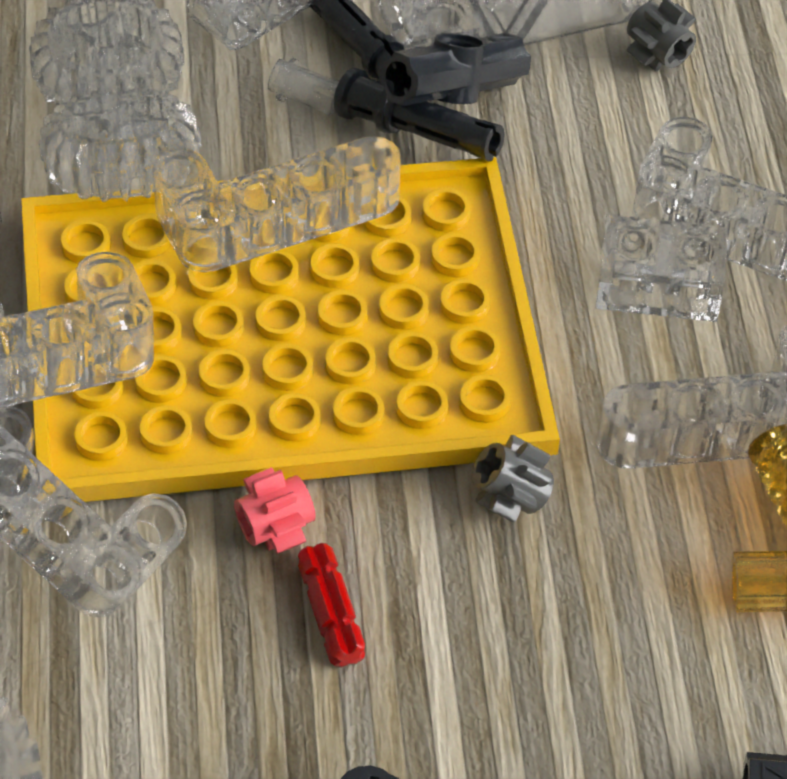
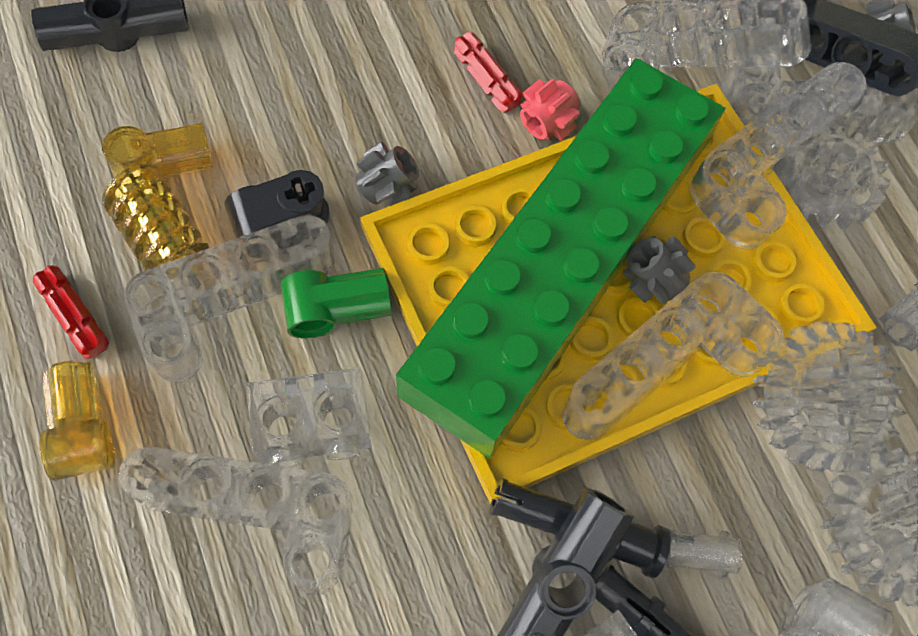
camera: 160 degrees right, 15 degrees up
(243, 268) = (658, 269): none -> dark grey gear
(327, 318) = (557, 258): none -> green brick
(599, 367) = (321, 302): none -> green piece
(663, 472) = (275, 202): none -> black piece

